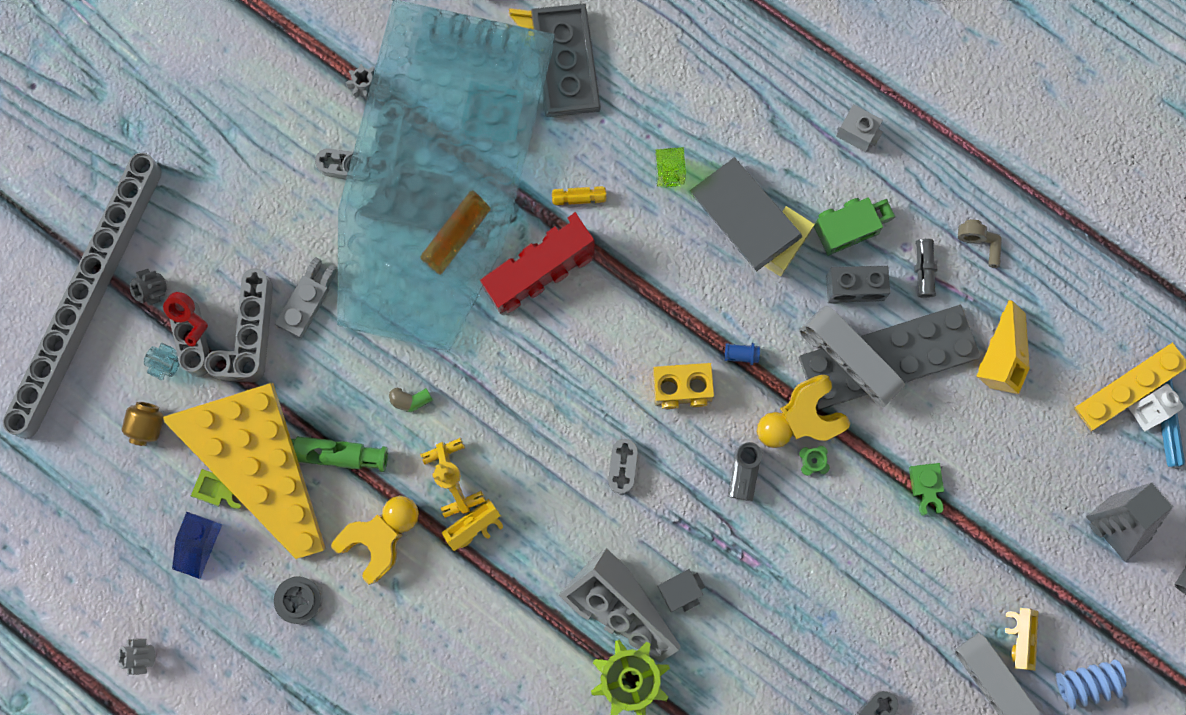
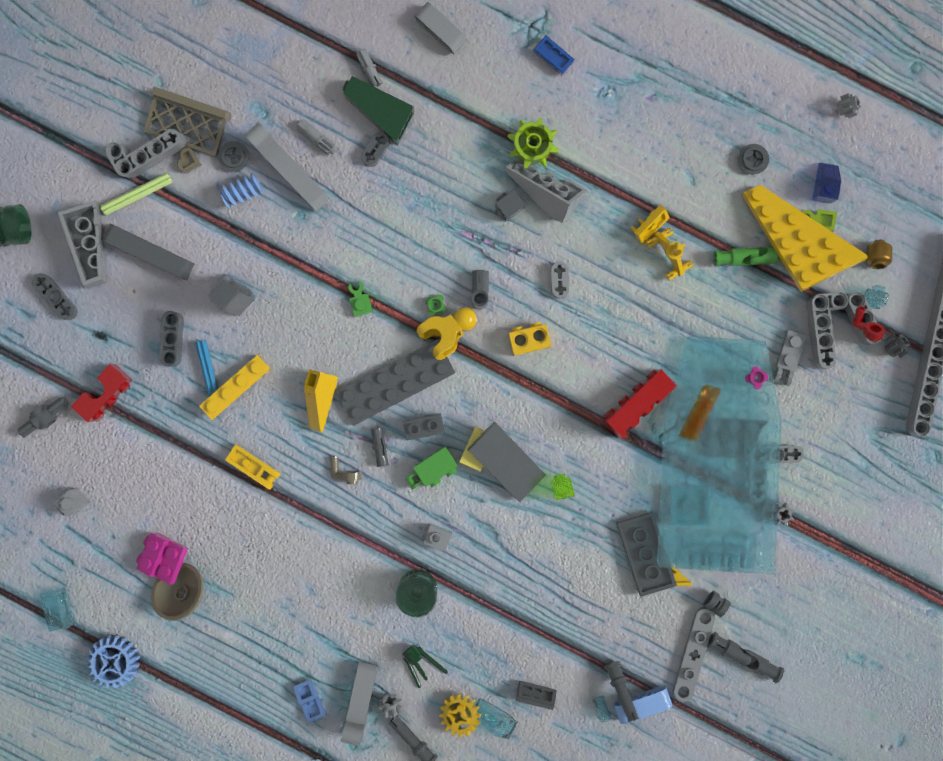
camera: 170 degrees right, 10 degrees up
(355, 268) = (762, 377): none -> dark pink plate
(380, 536) = (709, 207): yellow piece -> none
(408, 402) = (707, 298): arm -> none
(579, 195) = (621, 458): yellow axle -> none
(742, 353) = (493, 368): blue pin -> none
(853, 354) = (421, 375): light grey beam -> none
(901, 55) = (416, 603): none -> clear green wheel
(1026, 646) = (285, 216): plate -> none
(1116, 270) = (252, 466): none -> yellow plate
(1156, 407) = (216, 376): white bracket -> none

